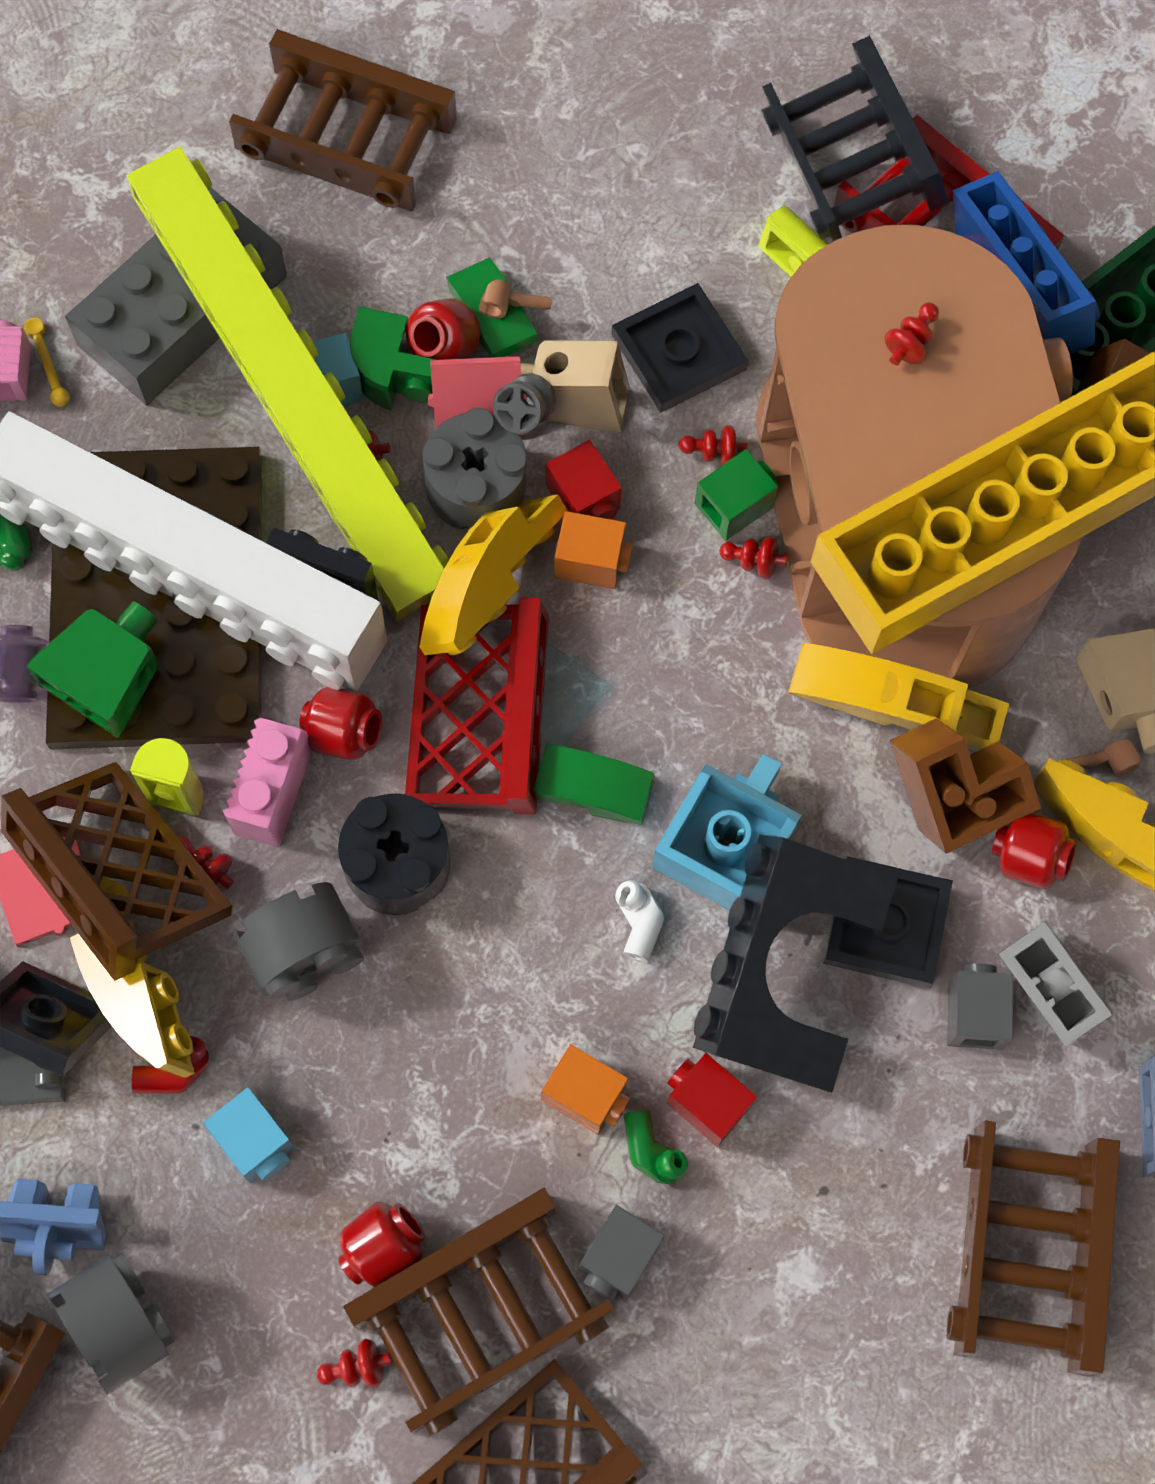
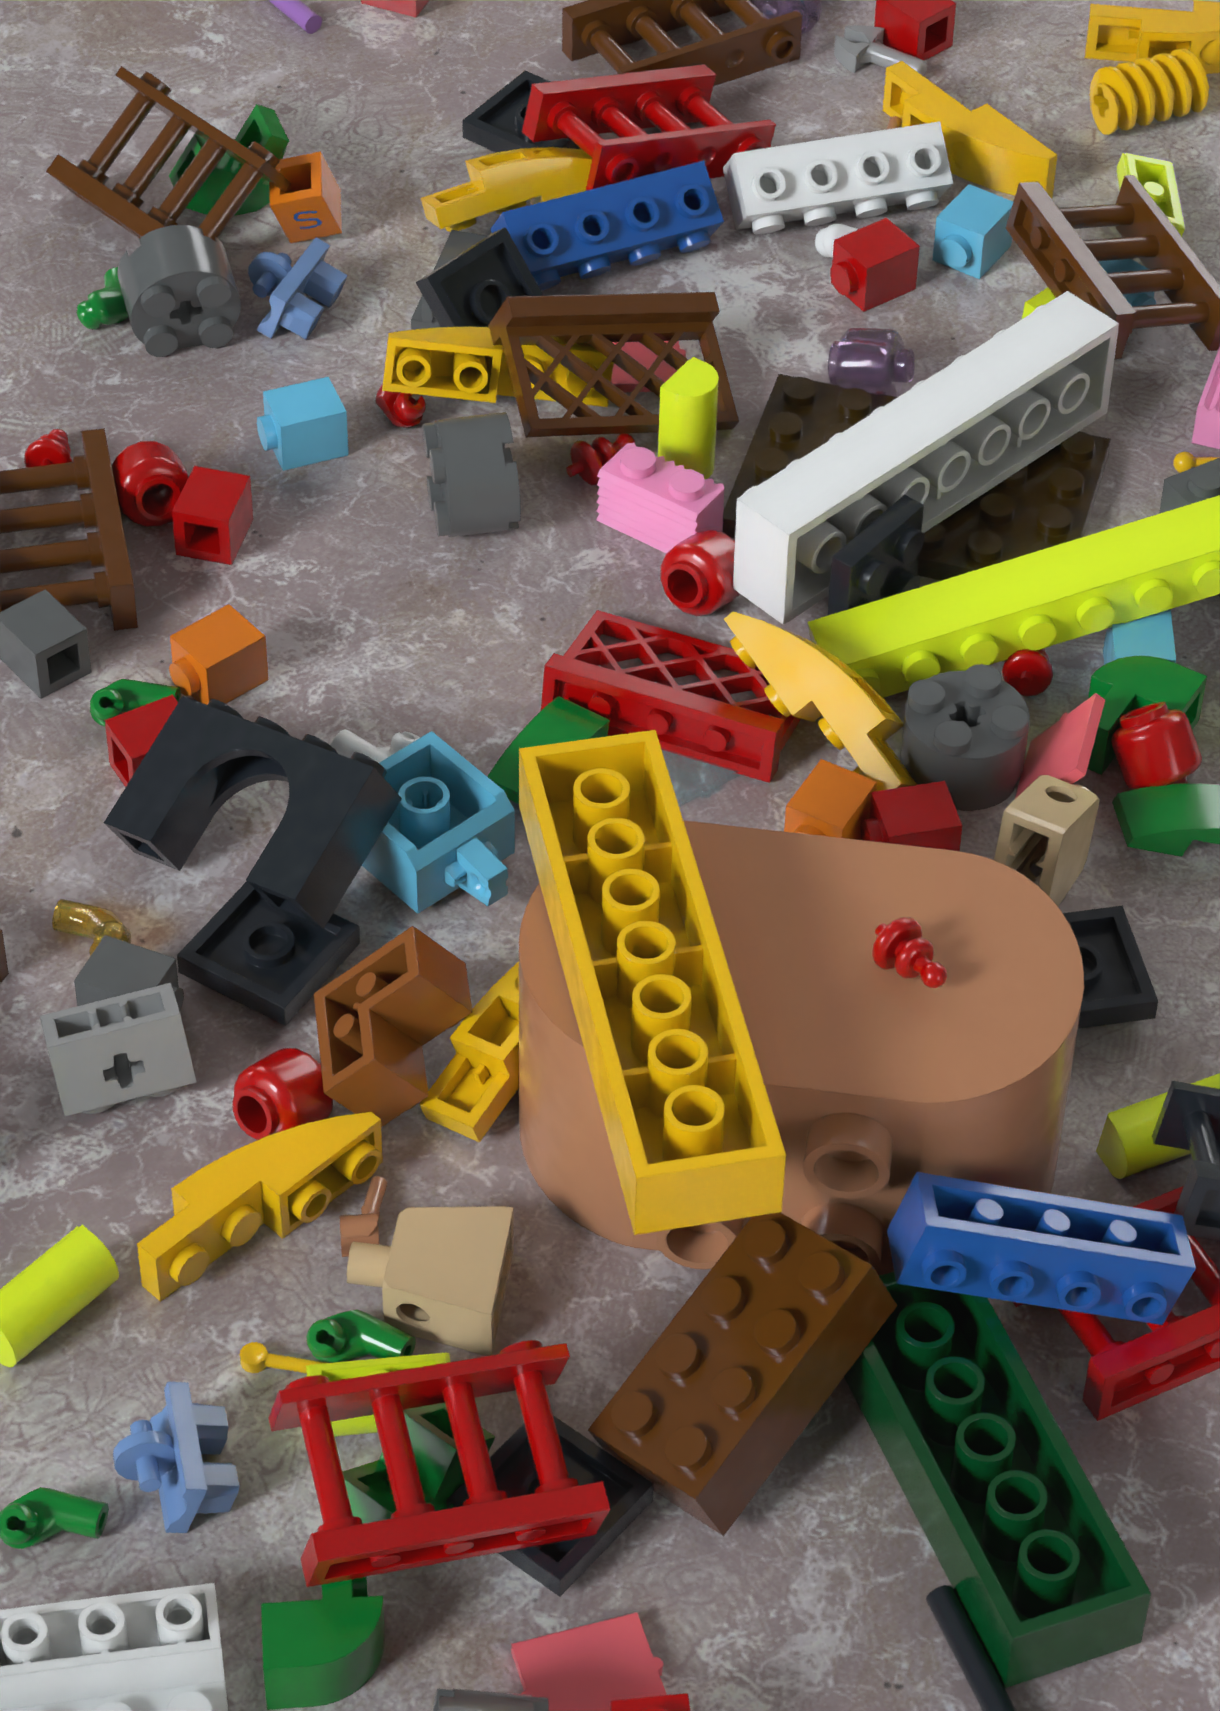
camera: 110 degrees right, 25 degrees down
(100, 665) = (823, 388): green torso -> none
(118, 1408) = (104, 304): none -> green arm
(377, 829) = (538, 574): black brick -> none
(400, 1170) = (212, 515): none -> red brick
(500, 296) = (1181, 796): nougat hand -> none
(514, 411) = (1017, 756): dark grey wheel -> none
(912, 1064) = (88, 922): none -> clear yellow arm

